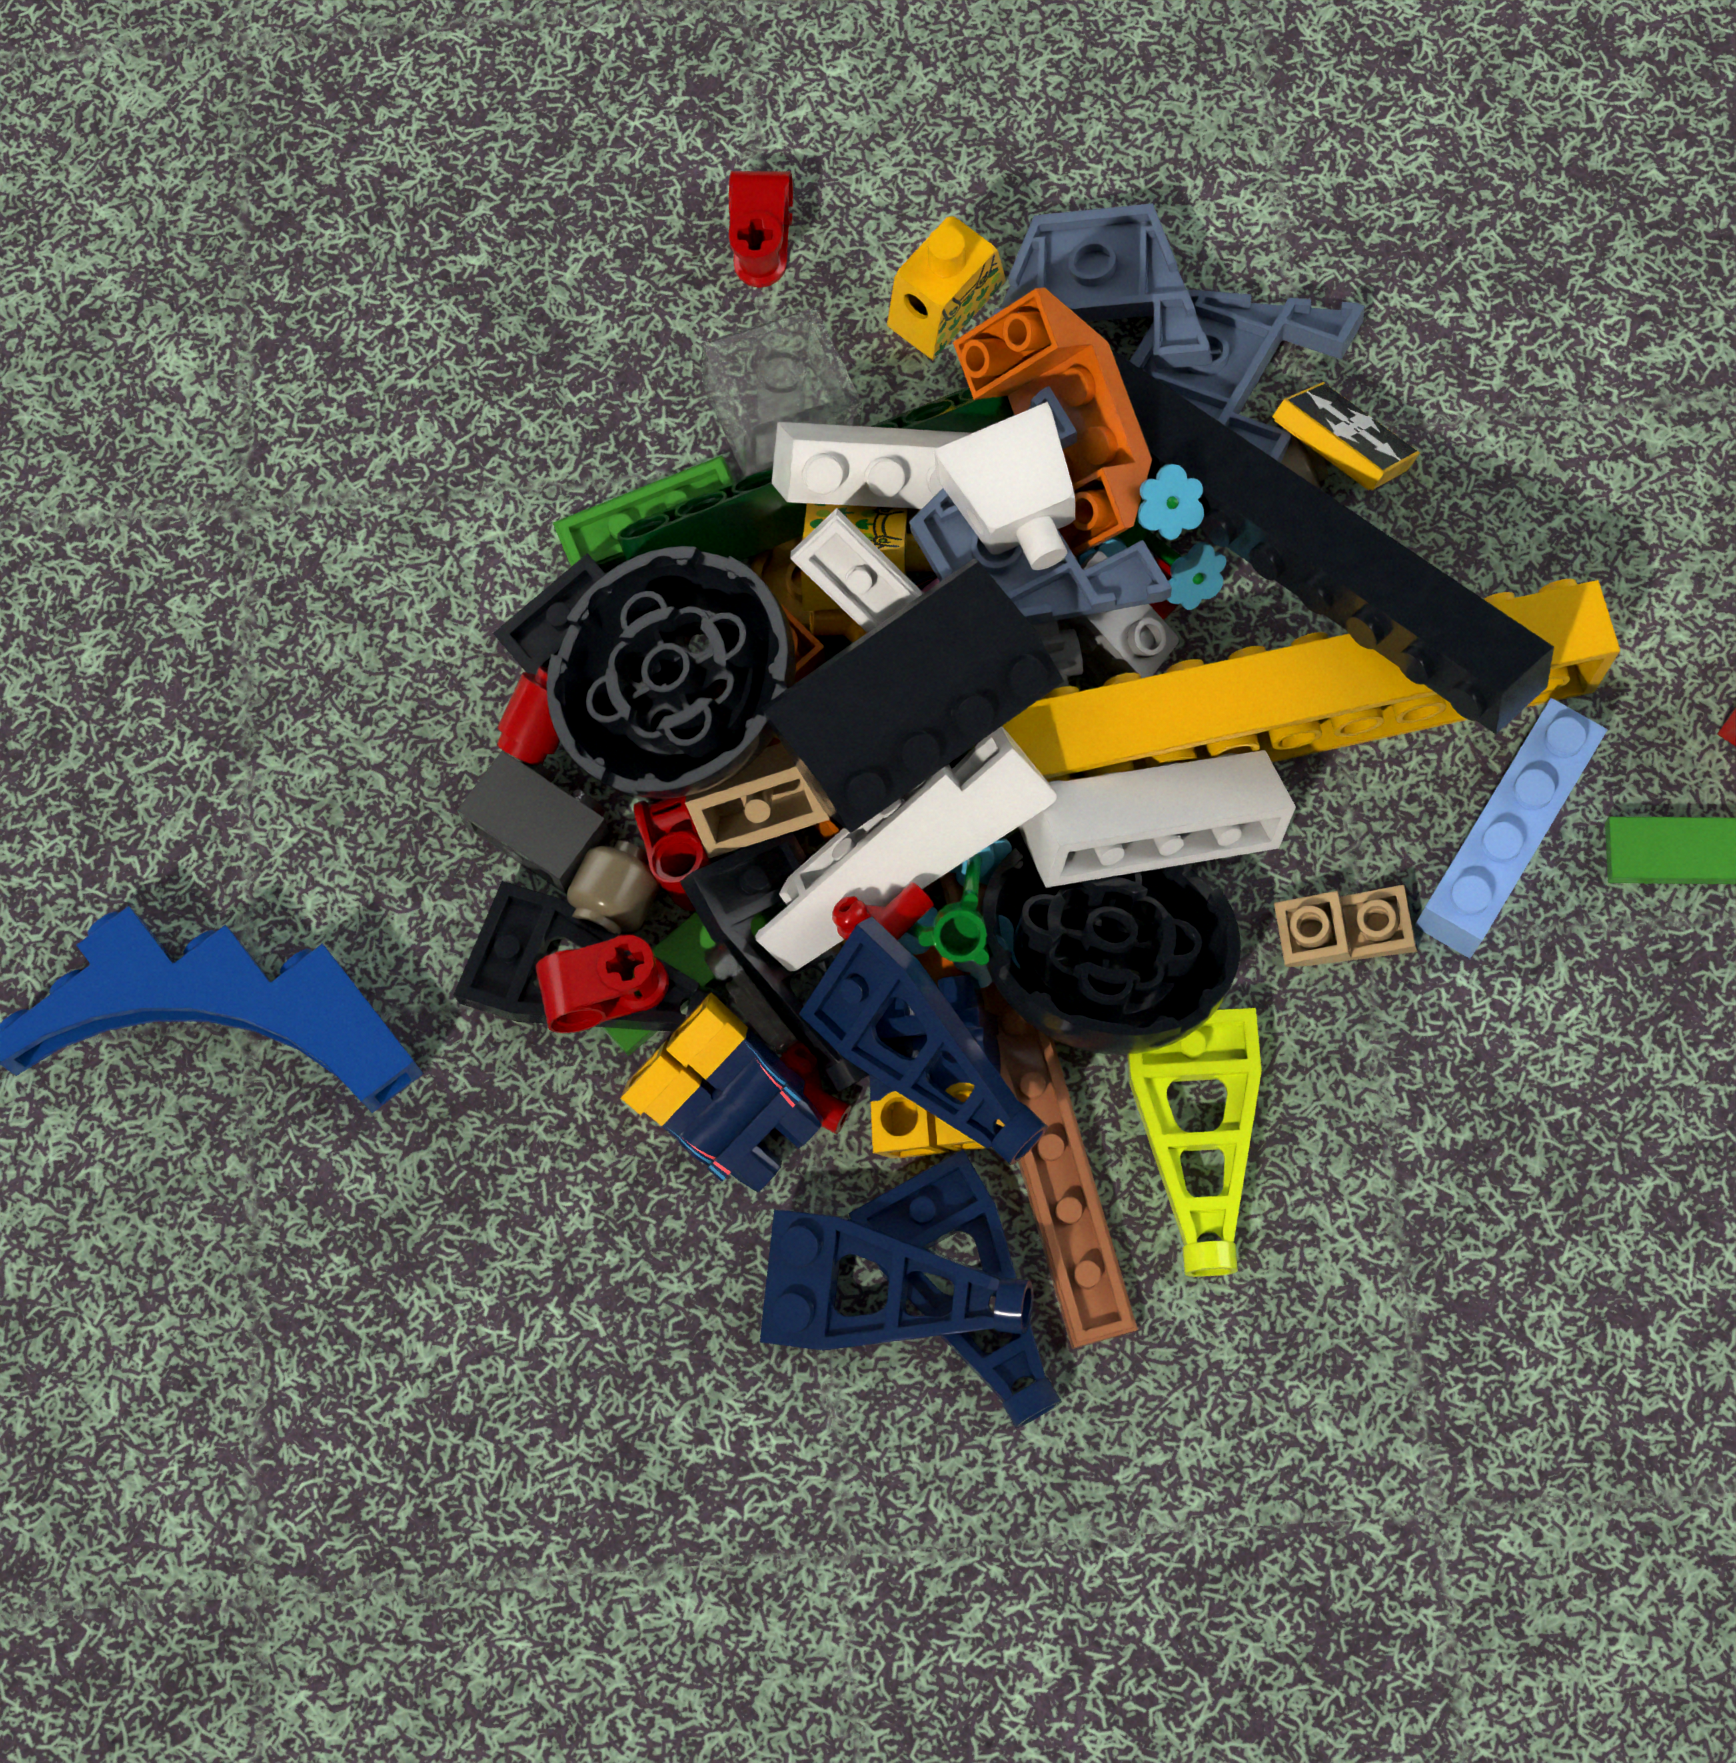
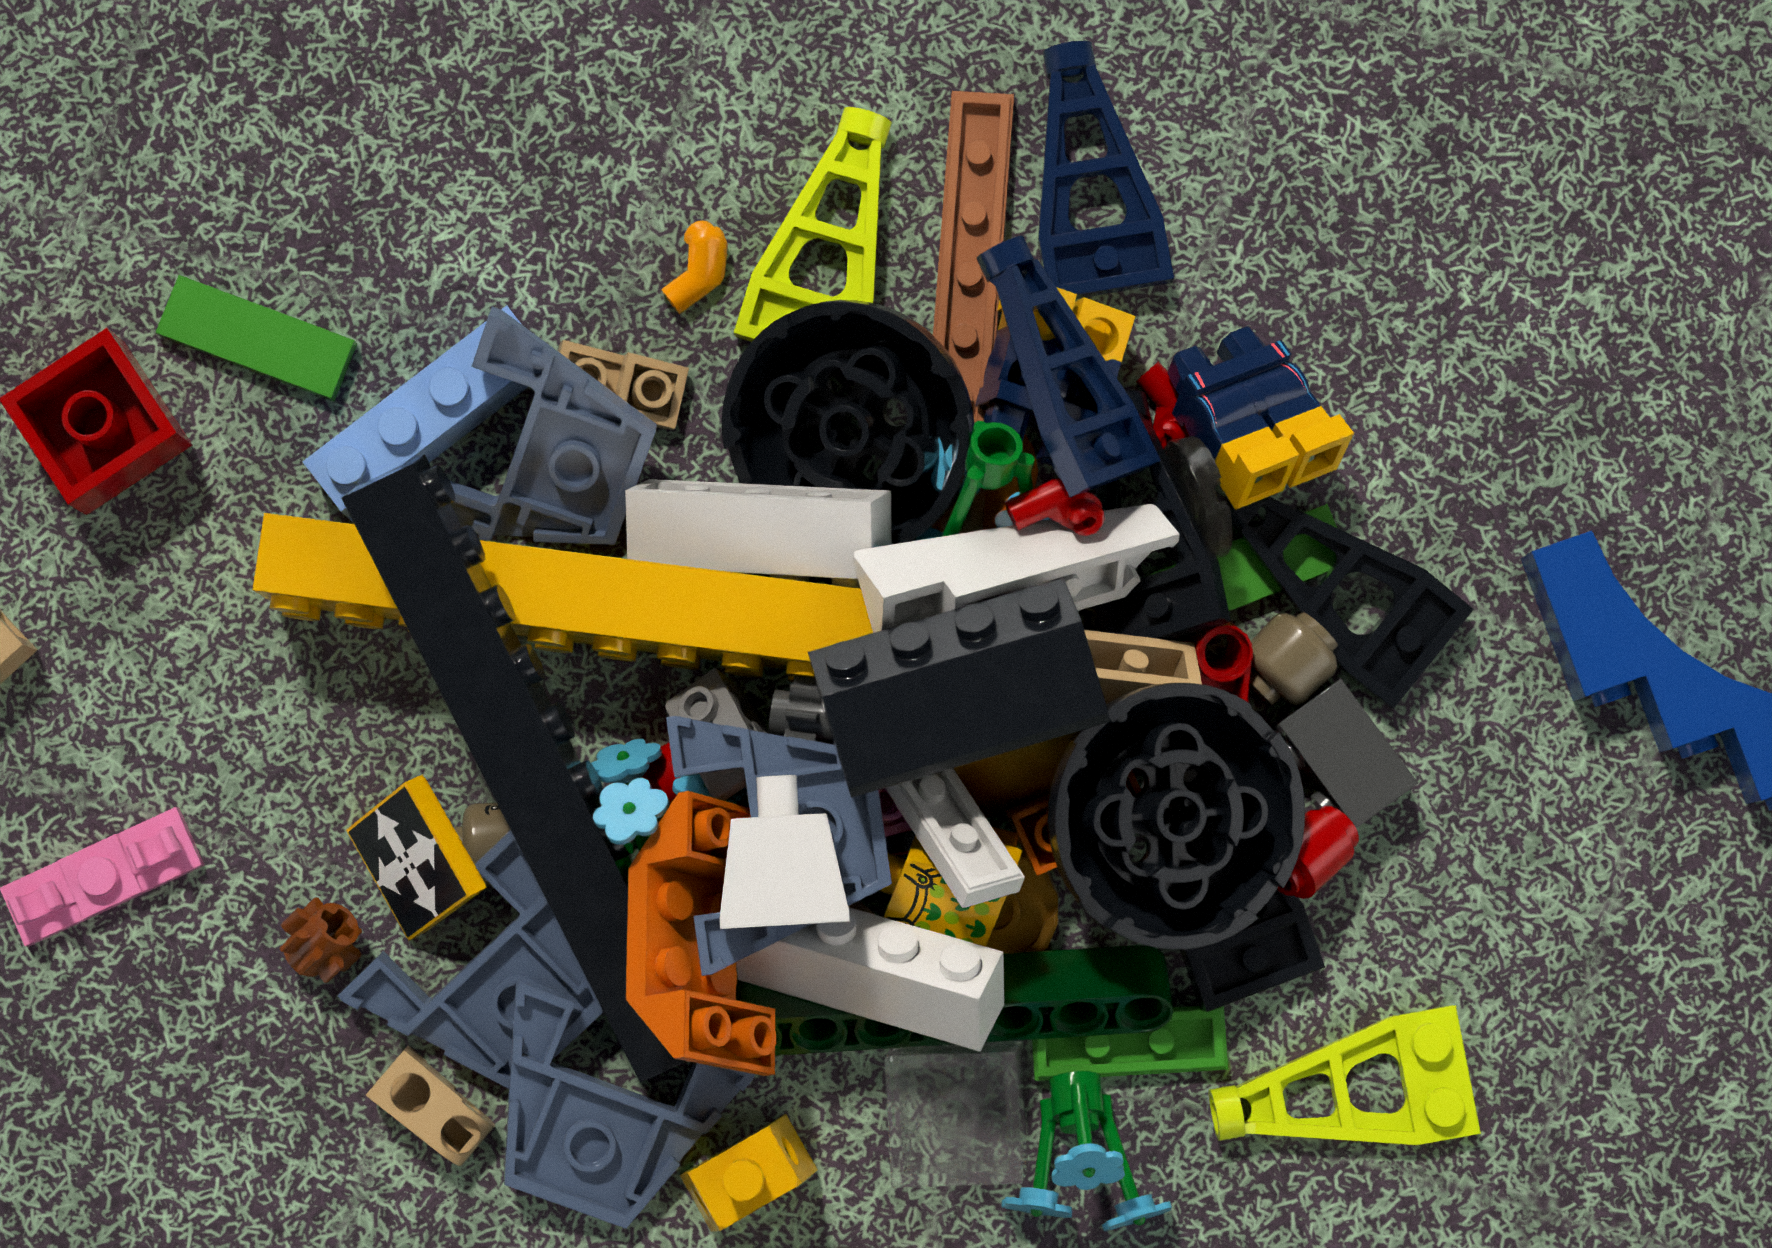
camera: 165 degrees left, 10 degrees up
(368, 587) = (1432, 1074): none -> neon yellow plate
(597, 983) = (1344, 554): red piece -> none
(676, 443) = (1079, 1107): none -> plant
(805, 1278) = (1236, 231): dark blue plate -> none
(1245, 251) = (430, 1107): none -> tan leg
(1310, 1070) = (704, 269): none -> light orange arm
(1360, 834) = (573, 451): none -> sand blue wing
(1412, 338) = (321, 939): none -> dark orange gear
(1617, 340) = (101, 876): none -> bright pink plate

